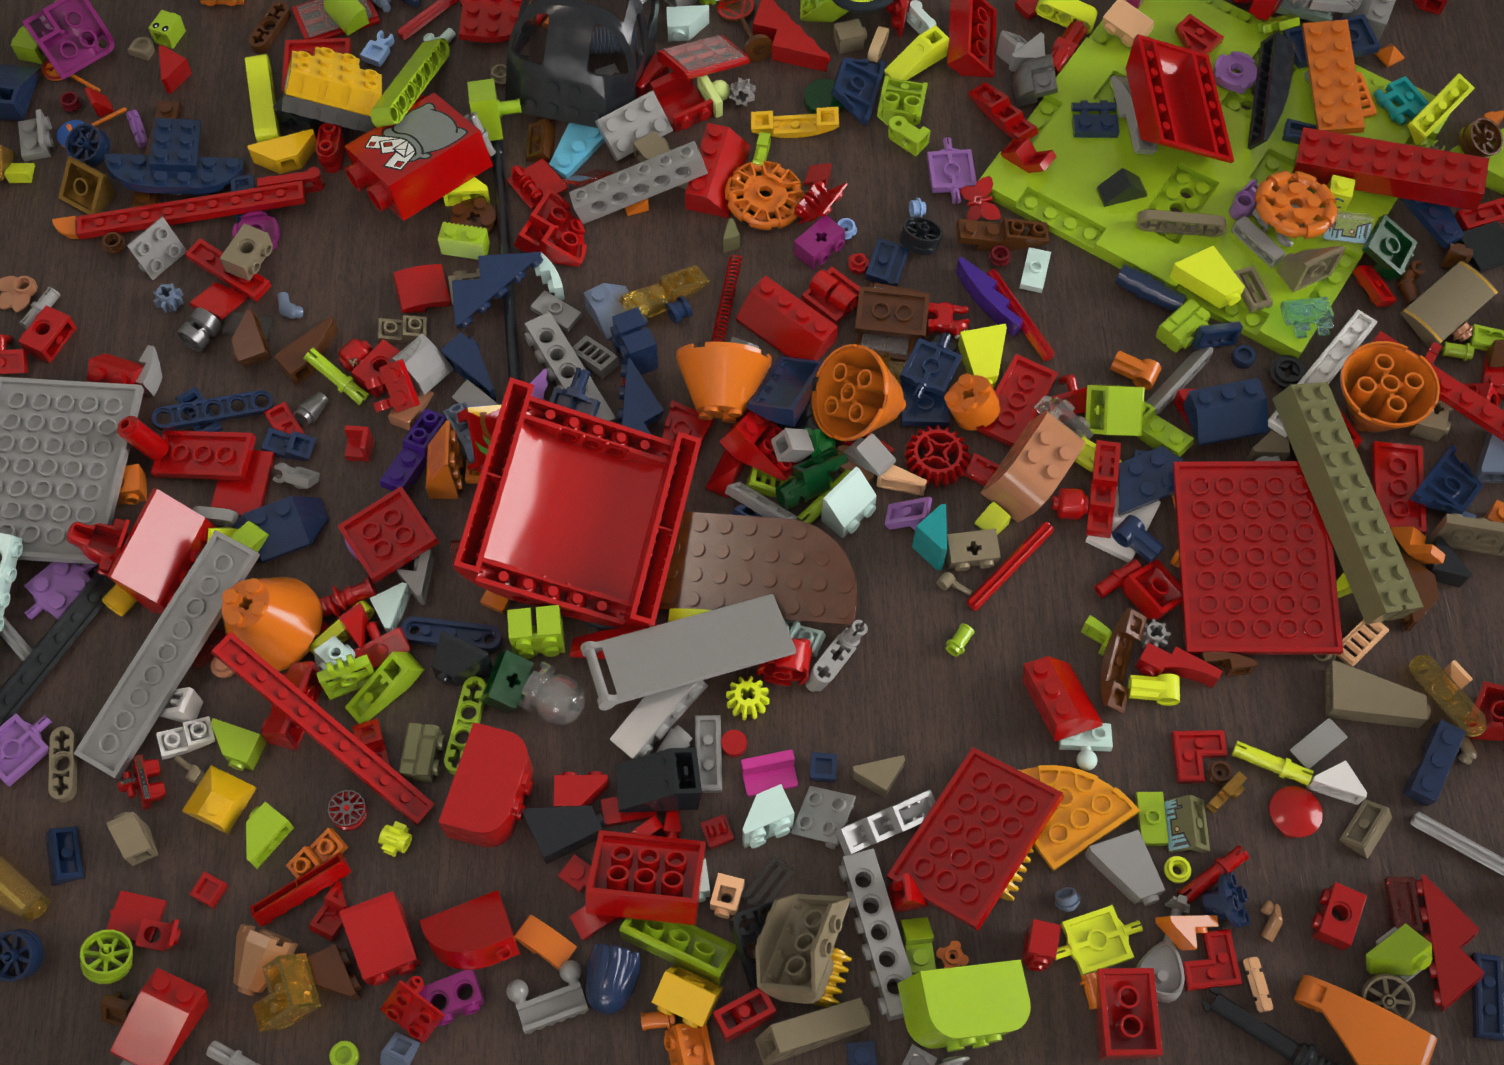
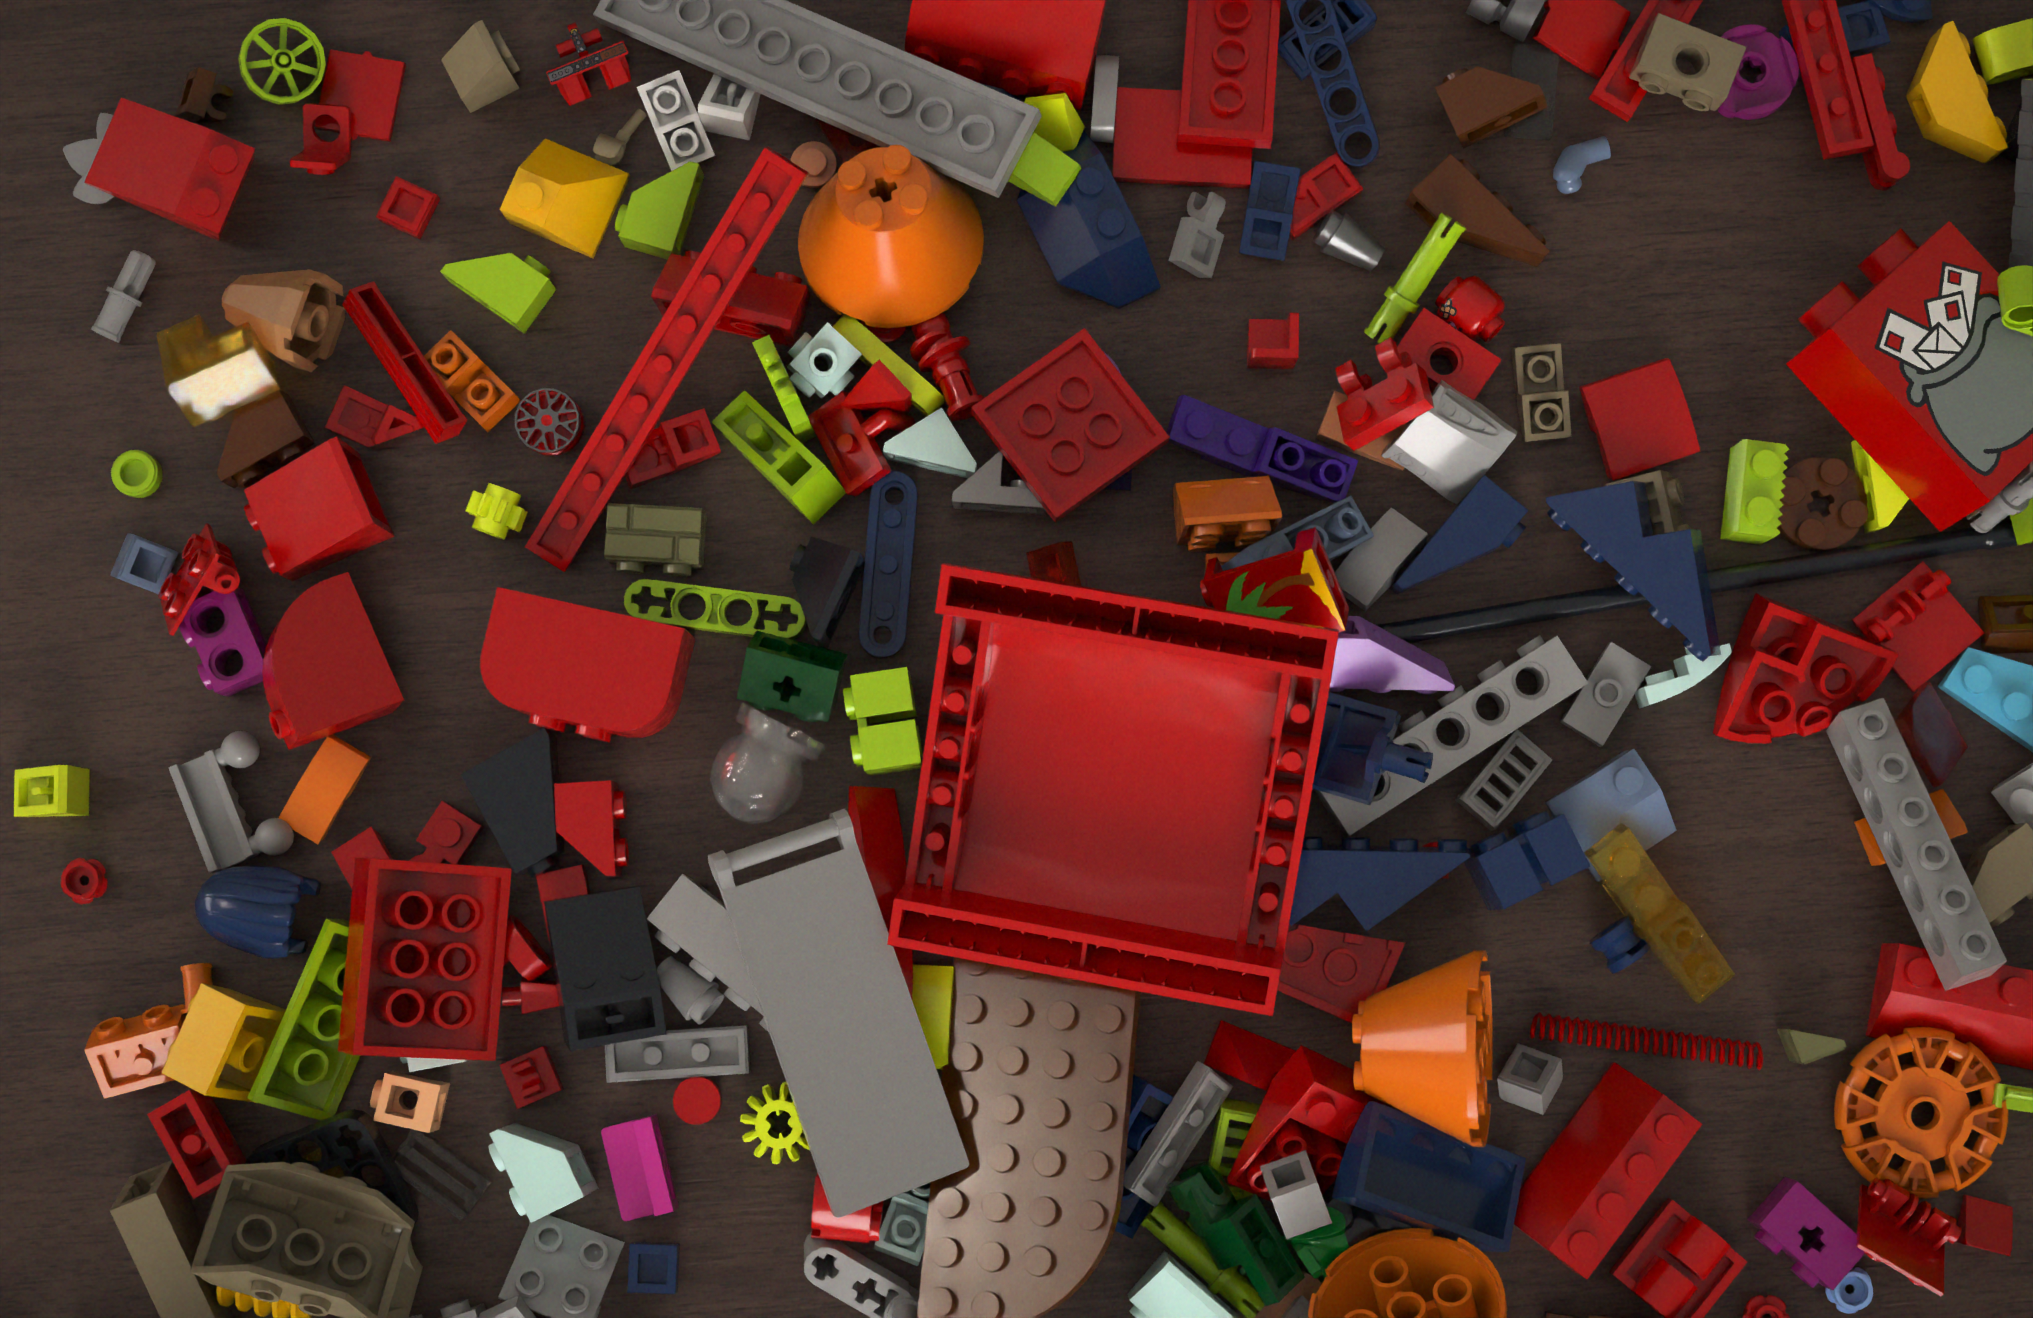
camera: 90 degrees right, 20 degrees up
(330, 147) = (1968, 190): red brick -> none

